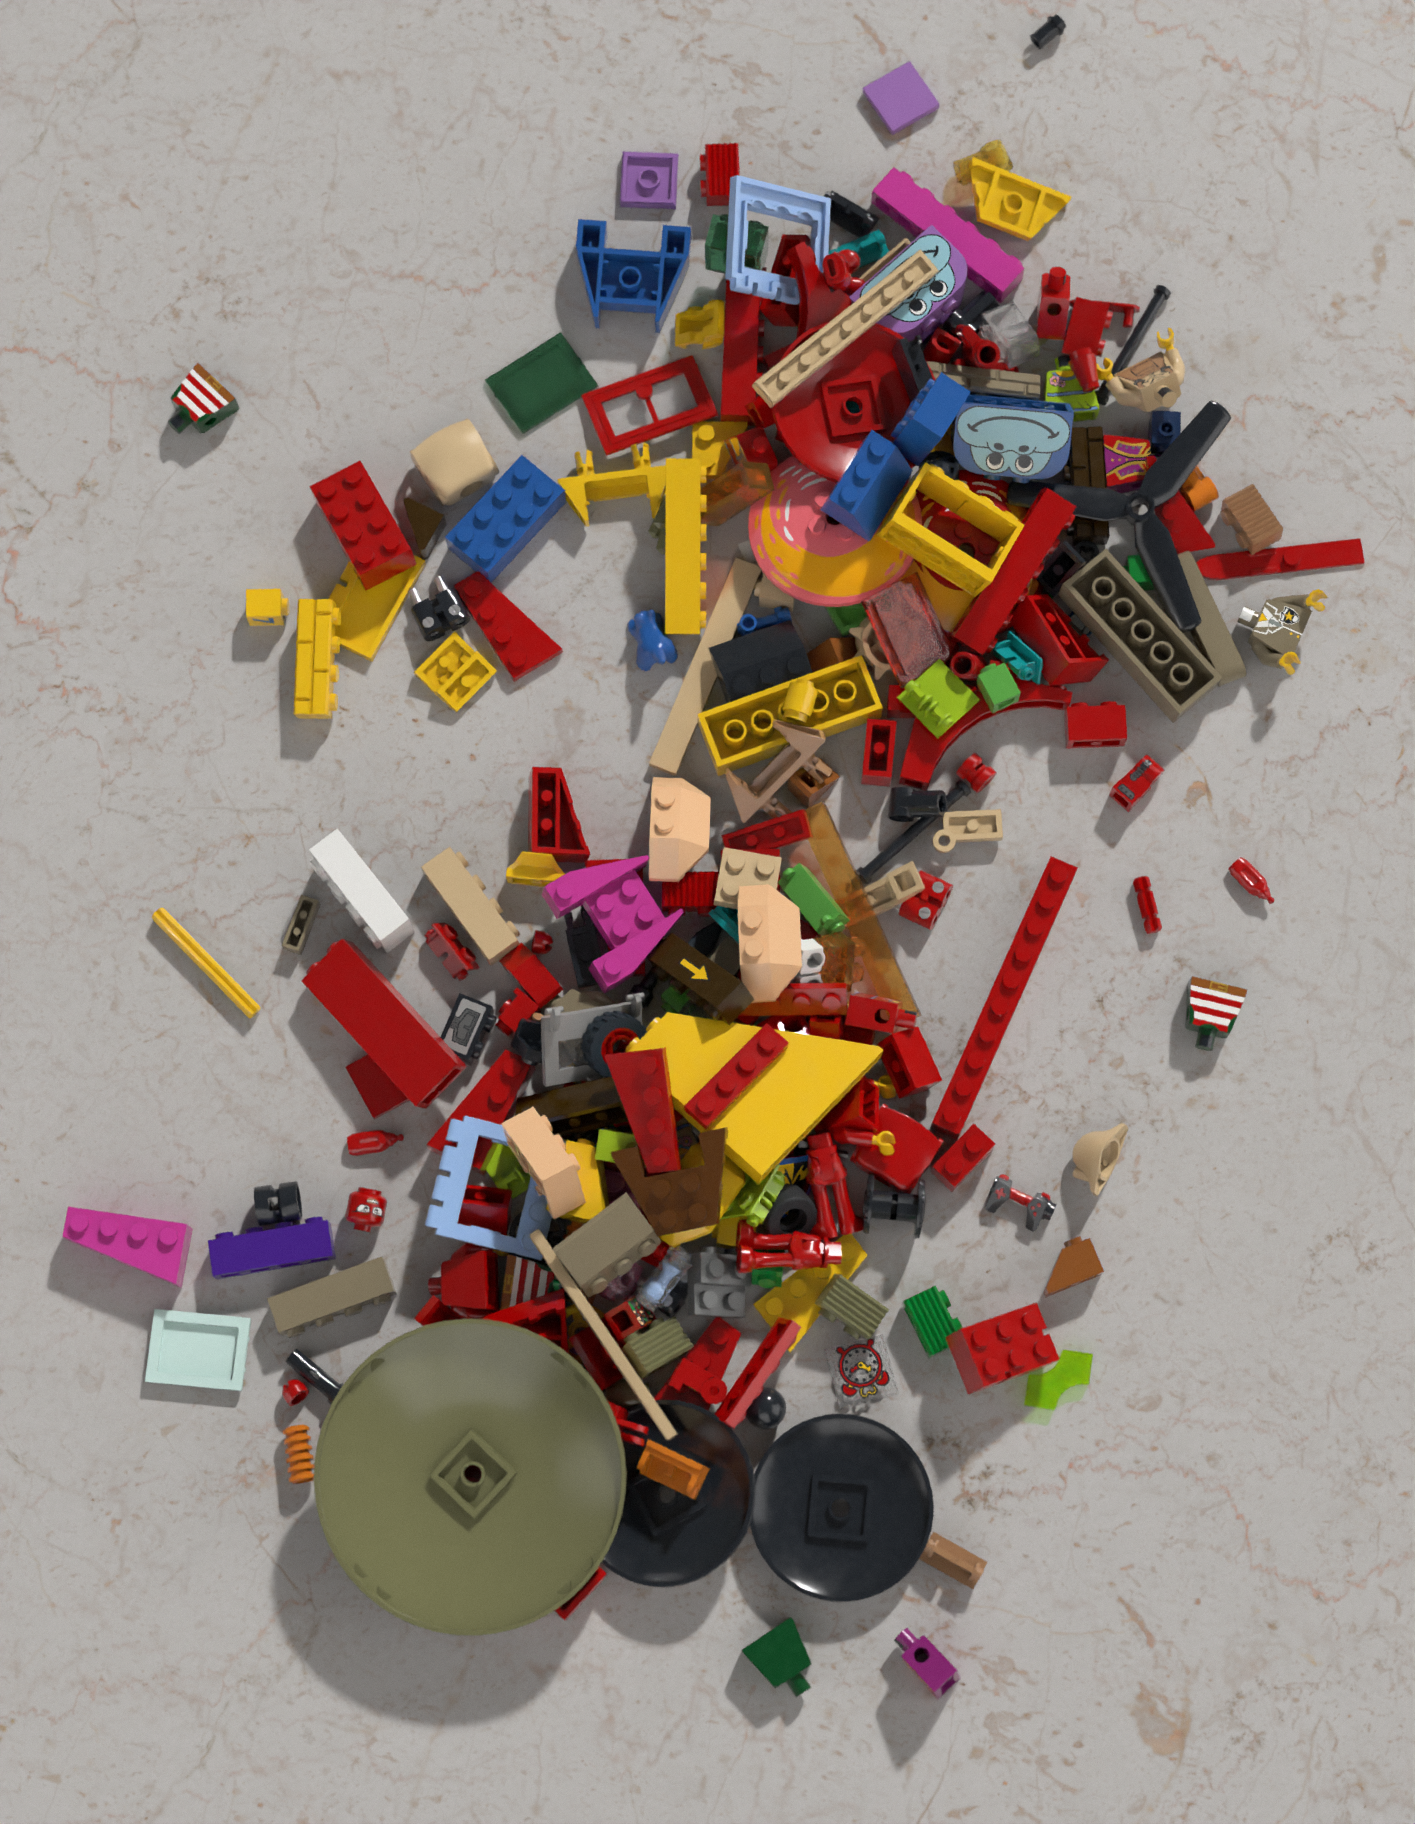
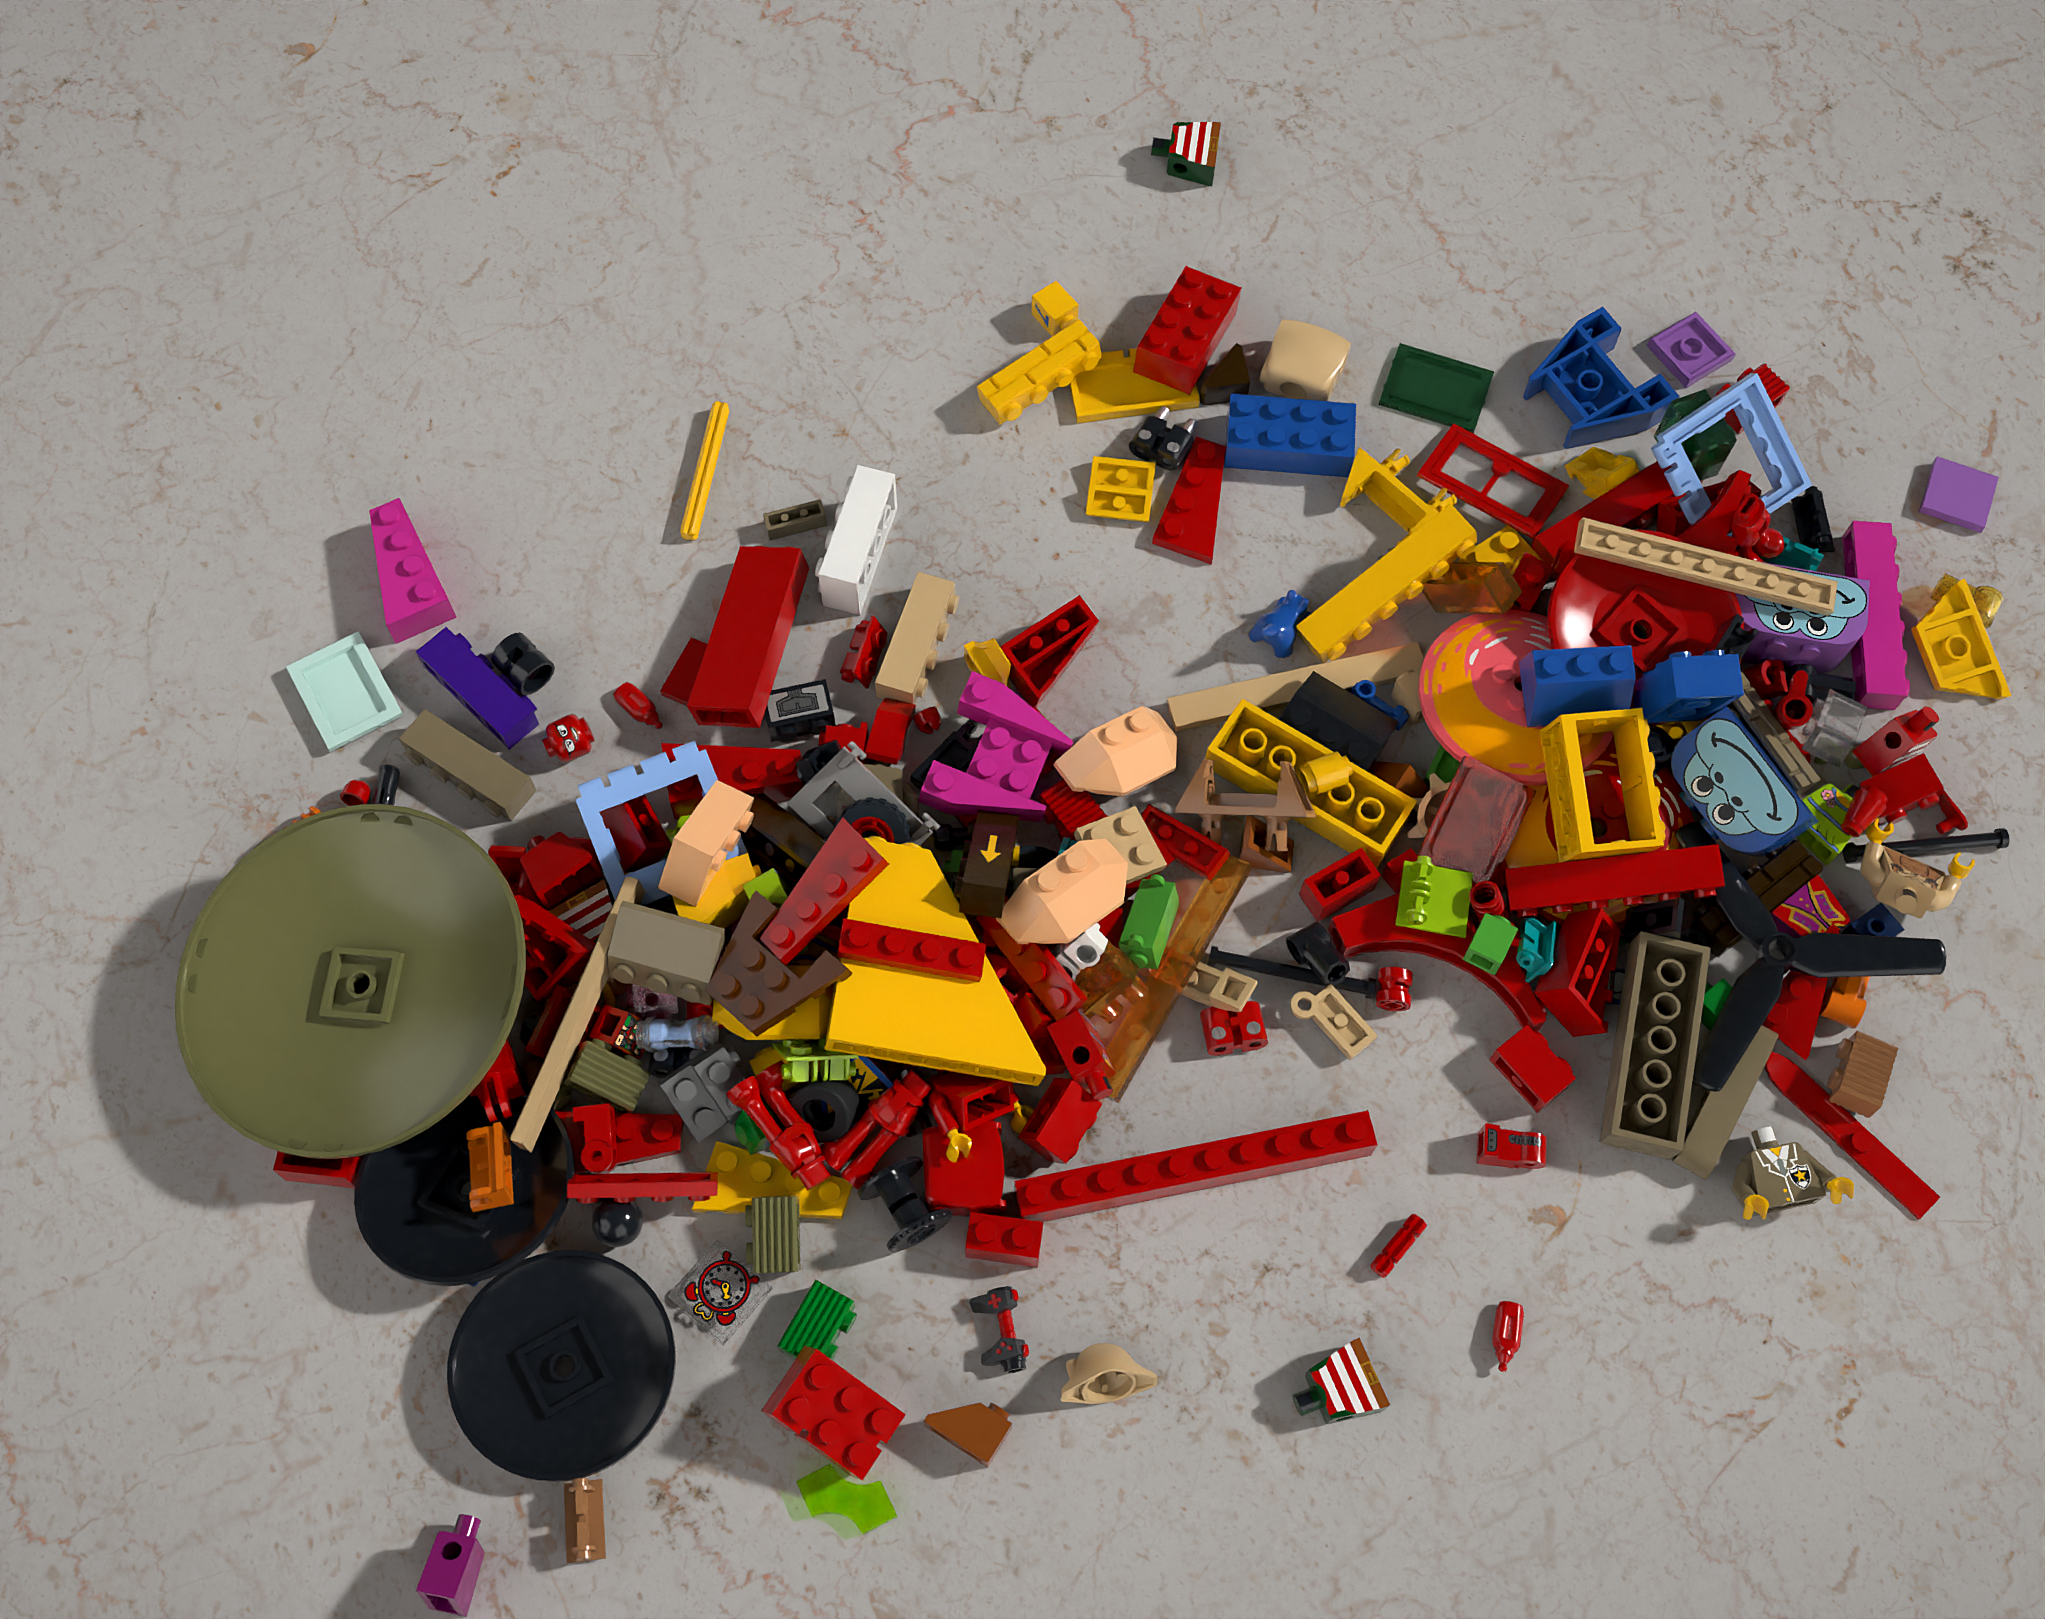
camera: 50 degrees right, 10 degrees down
(781, 1657) = (372, 1412): dark green torso -> none

